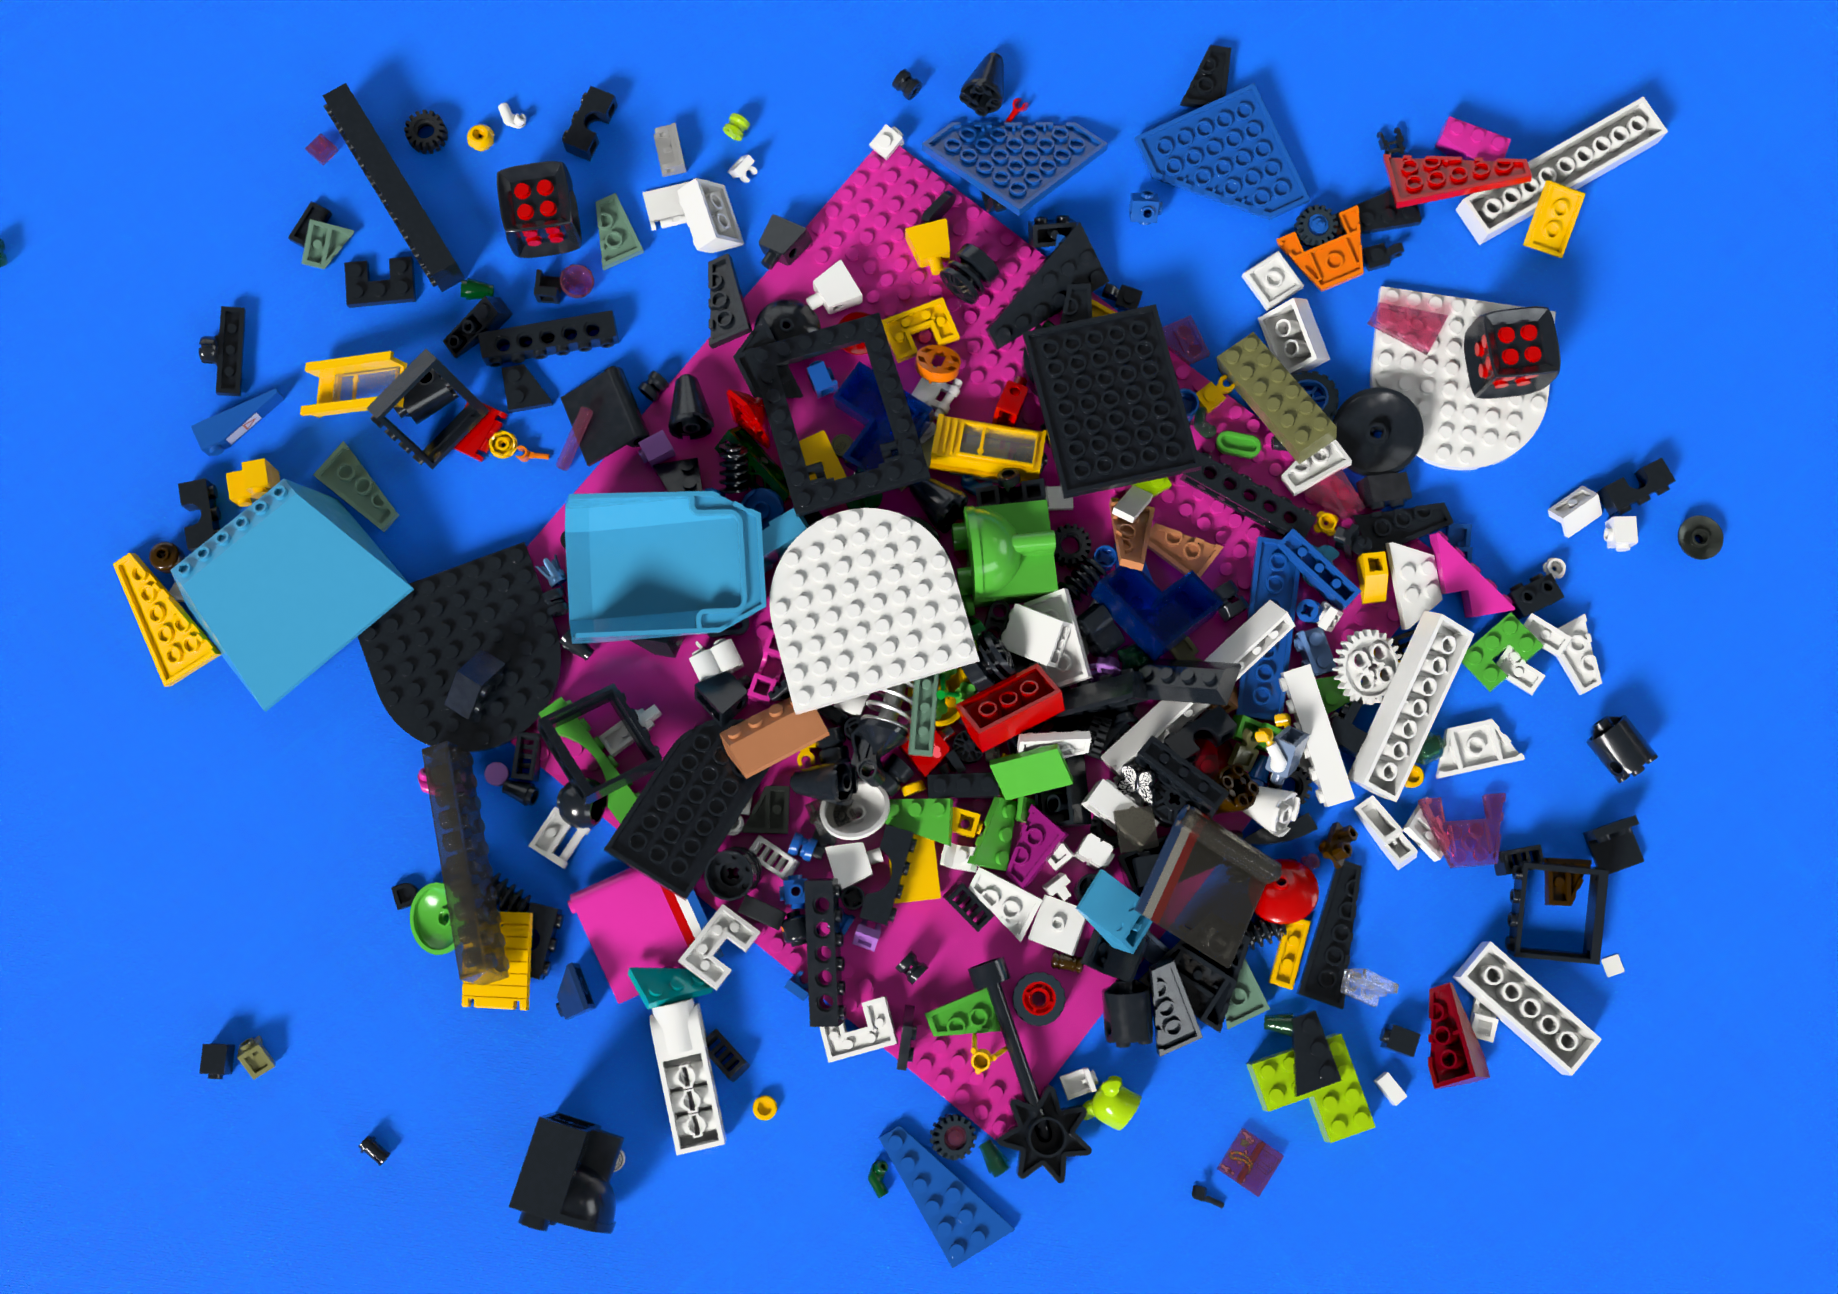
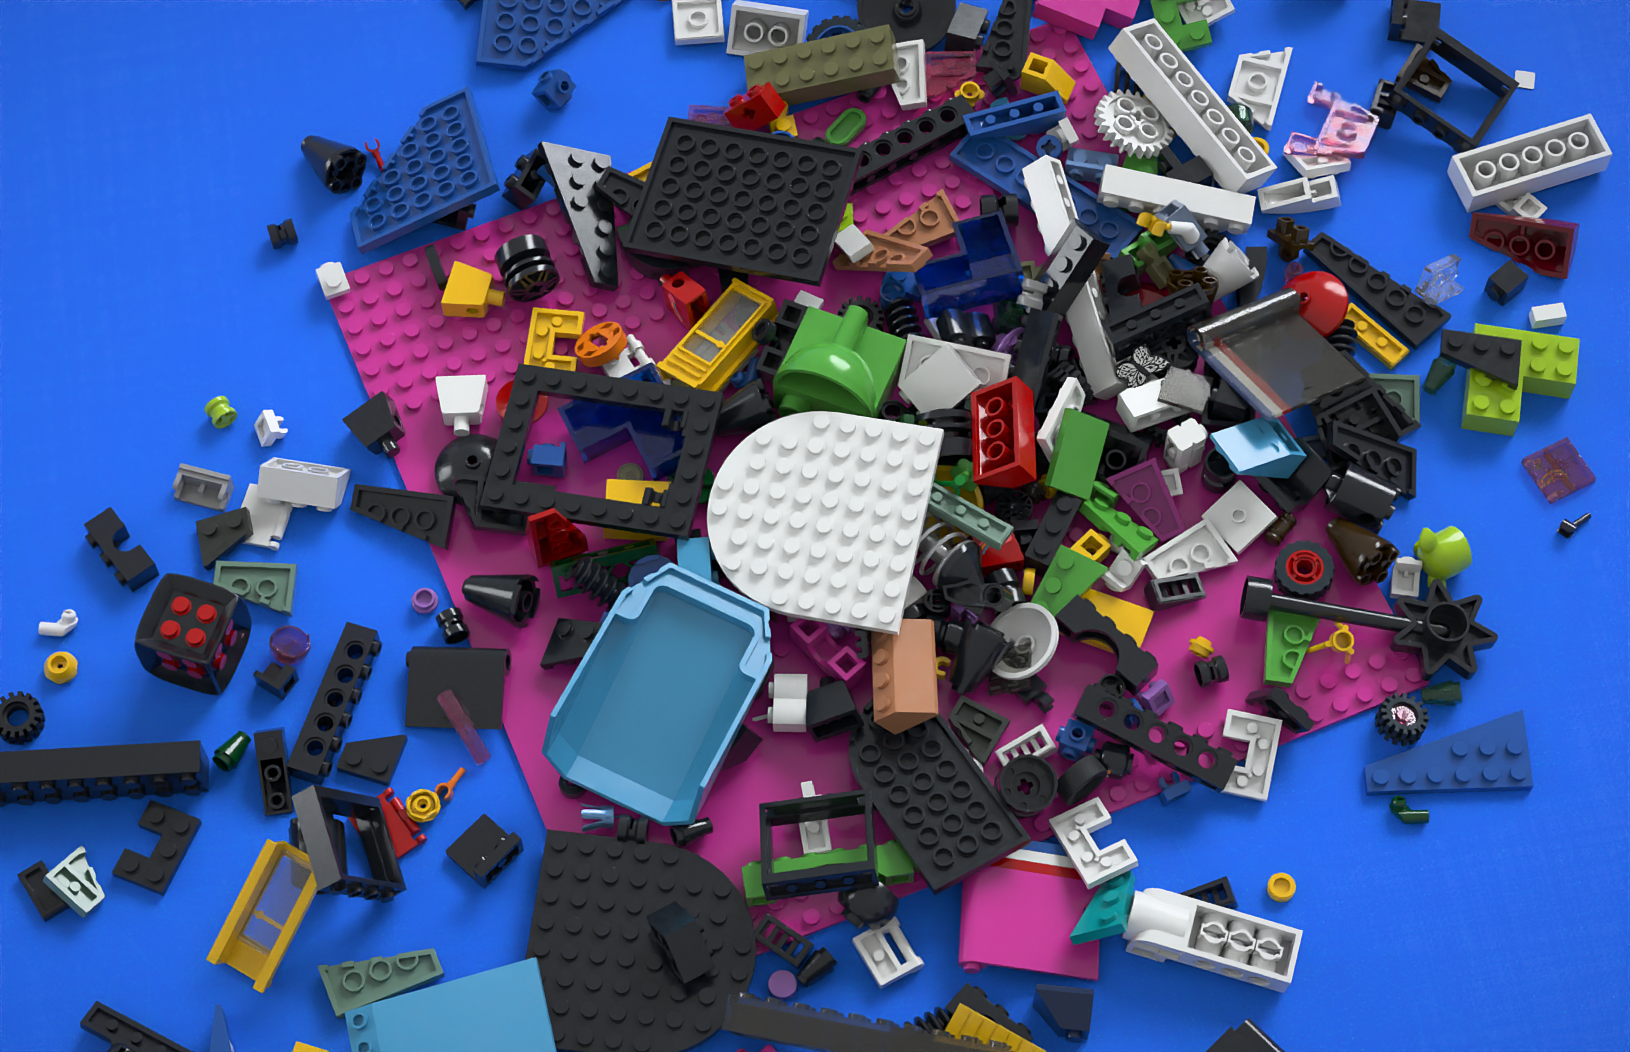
camera: 55 degrees left, 15 degrees down
(490, 507) = (485, 850): none -> black bracket
(640, 185) = (222, 534): none -> pearl dark grey wing
(656, 449) = (525, 651): medium lavender brick -> none
(665, 355) = (424, 601): none -> medium lavender plate
(807, 849) = (1031, 713): blue wheel -> none
(852, 863) = (1072, 673): white torso -> none
(928, 949) = (1200, 647): none -> yellow plate
(1057, 886) = (1200, 498): white tile -> none
(1079, 1036) = (1361, 551): none -> dark brown cone
(1126, 298) = (632, 153): black plate -> none
(1150, 666) = (1032, 300): none -> light grey wheel
(1209, 365) = (755, 108): none -> red brick
(1413, 581) = (1072, 51): white wing -> none

